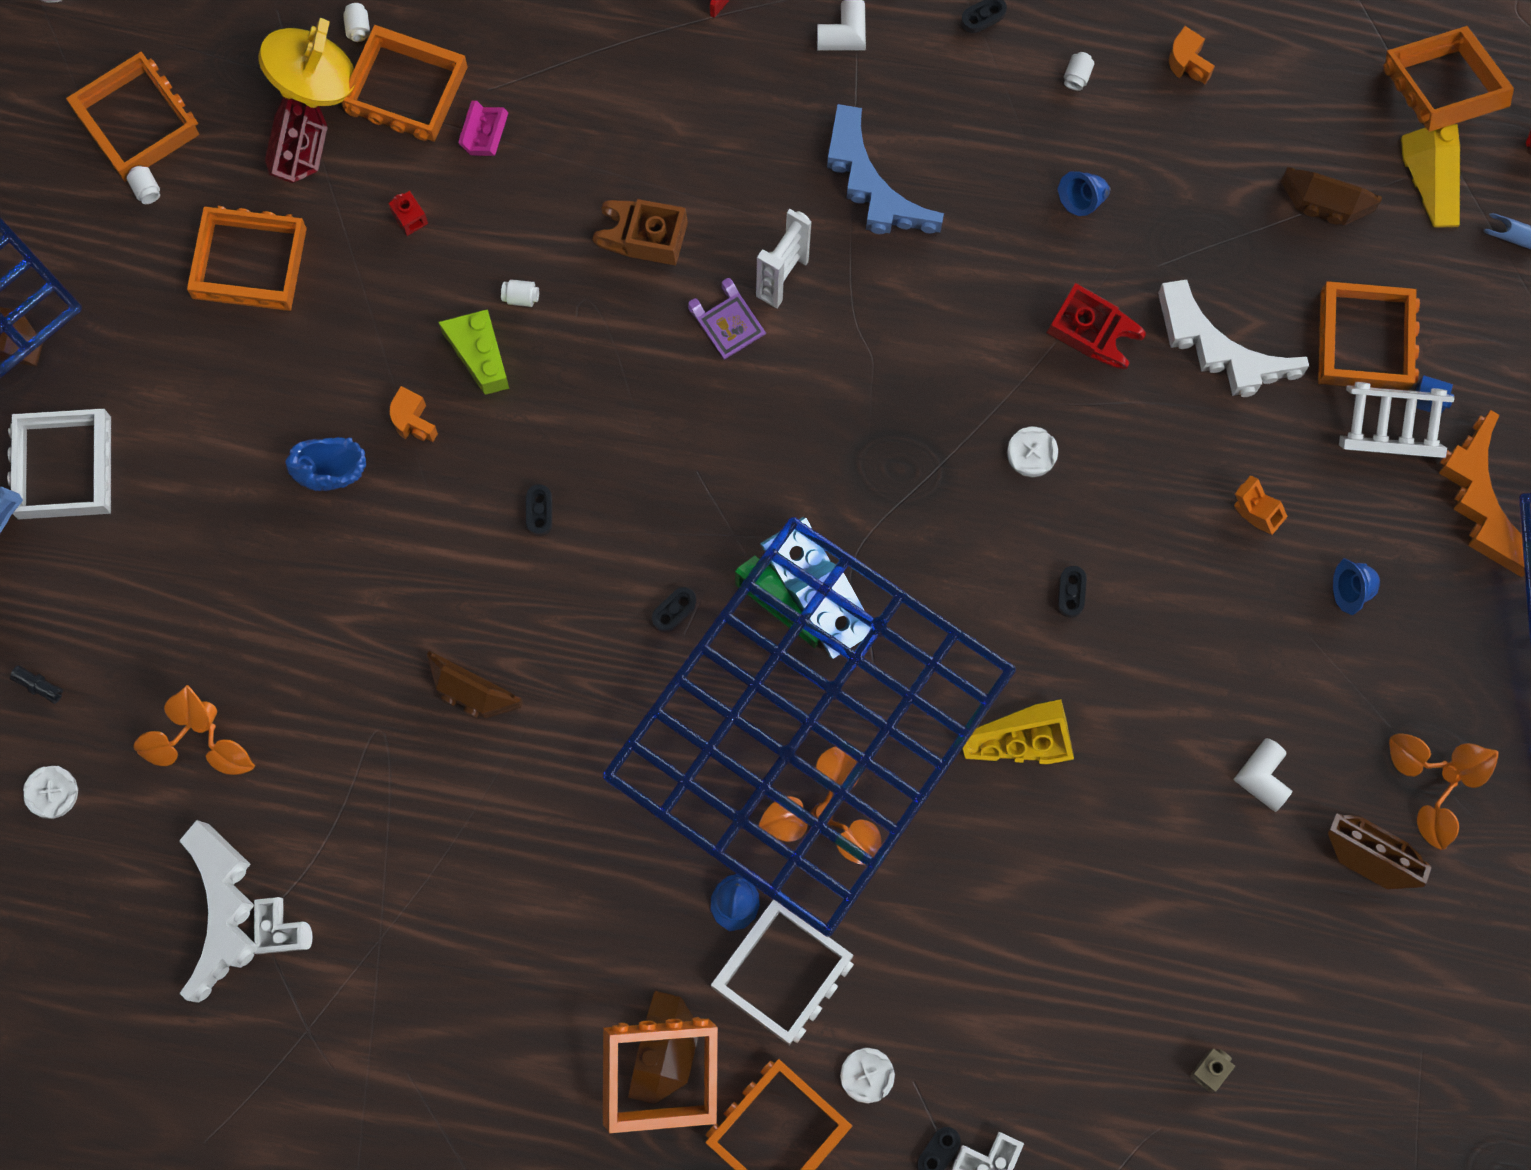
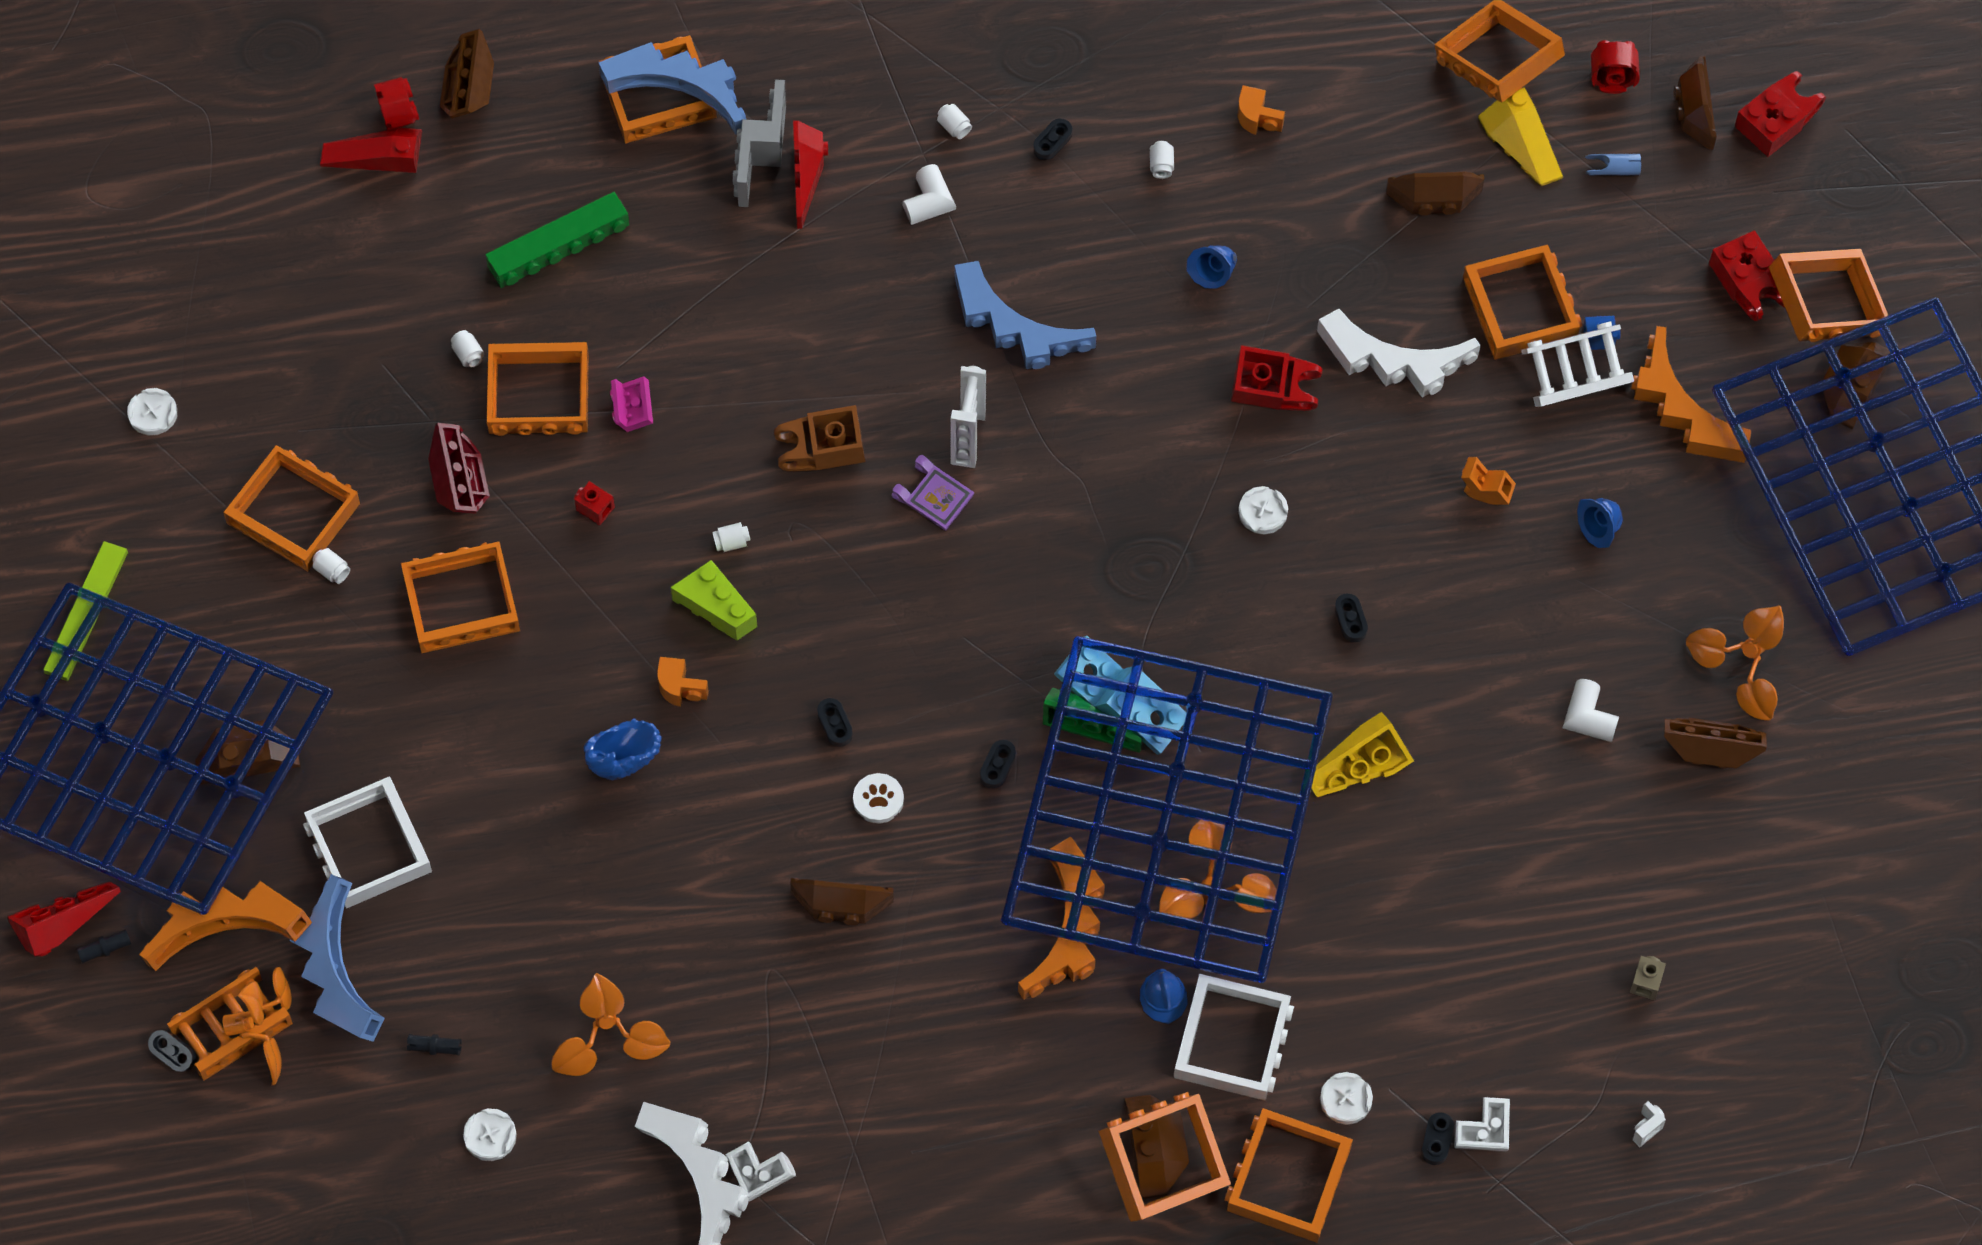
camera: 20 degrees left, 10 degrees down
(306, 65) = (443, 401): yellow bracket -> none
(548, 600) = (878, 798): none -> white tile
(651, 828) = (1067, 955): none -> orange arch

